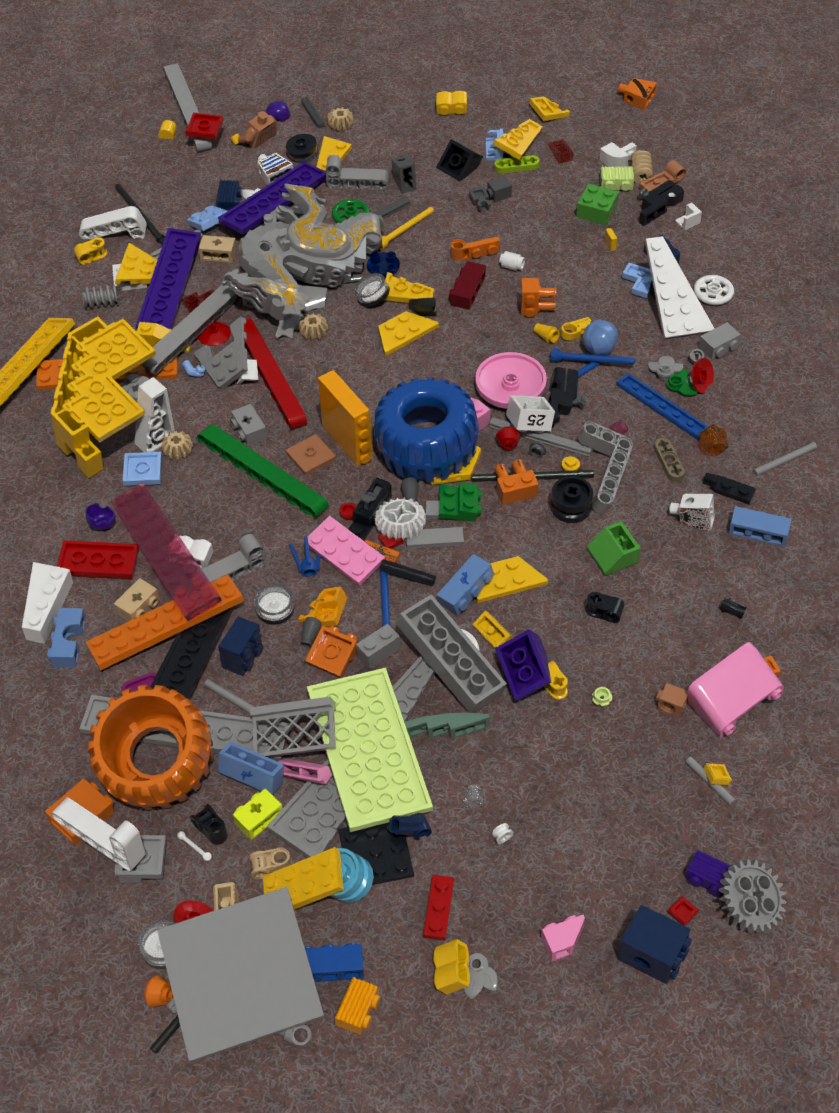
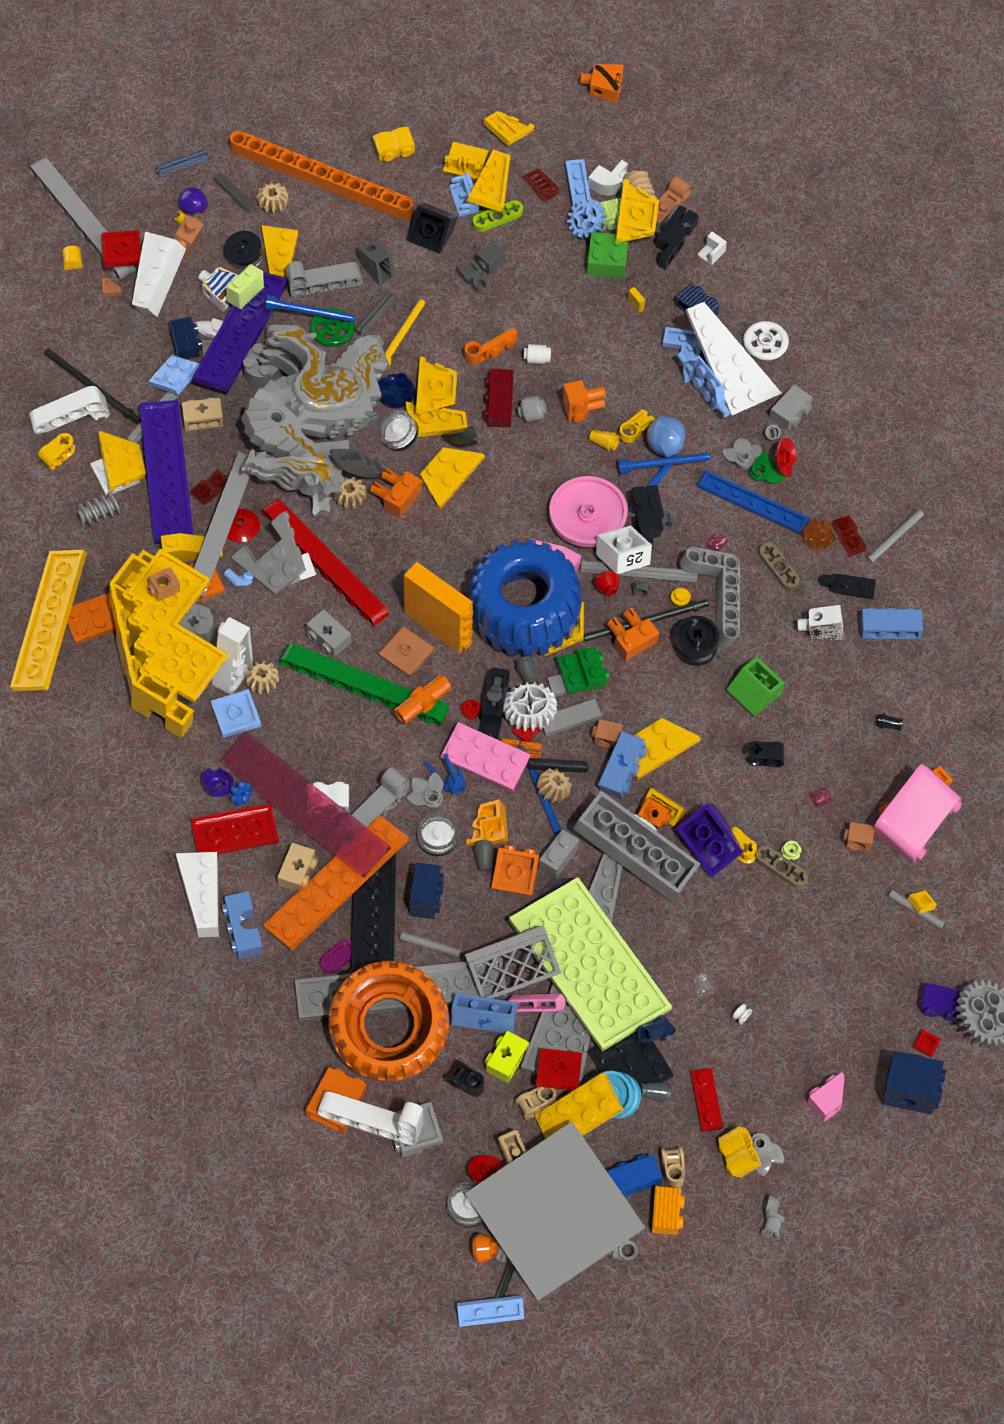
camera: 20 degrees left, 10 degrees up
(110, 342) = (167, 577): none -> nougat brick
(117, 530) = (241, 793): none -> blue plant
(139, 1058) = (490, 1311): none -> light blue plate
(182, 836) = (473, 1110): white hinge -> none
(187, 155) = (110, 288): none -> nougat tile
(223, 146) = (156, 272): none -> white wedge
(281, 87) = (181, 163): none -> dark blue axle
(281, 566) = (424, 790): none -> light grey plate
(289, 166) = (245, 286): none -> yellowish green brick
(300, 837) = (559, 1069): none -> red plate
(304, 488) = (422, 699): none -> orange piece
(307, 182) = (273, 303): none -> blue piece
(323, 301) = (357, 463): none -> dark grey slope
(355, 336) = (401, 495): none -> orange brick
(380, 961) = (673, 1163): none -> tan piece
(385, 112) = (321, 175): none -> orange beam
(389, 884) = (656, 1091): none -> dark grey cone
(396, 587) = (554, 785): none -> tan gear
(415, 267) = (435, 387): none -> yellow wing
(453, 723) = (660, 917): sand green slope -> none
(460, 554) = (606, 733): none -> nougat brick
(464, 1046) = (773, 1219): none -> light grey connector
(478, 626) = (664, 812): none -> orange brick
(492, 298) = (532, 408): none -> light grey head
(503, 121) = (464, 160): none -> yellow hinge
(589, 174) = (586, 218): none -> light blue gear
(589, 718) = (781, 859): none -> dark tan beam
(591, 155) = (577, 181): none -> light blue plate
(630, 177) = (636, 214): none -> yellow wing
(646, 657) = (820, 797): none -> clear pink hose
(648, 304) = (705, 381): none -> light blue plate
(741, 449) = (848, 535): none -> clear red slope

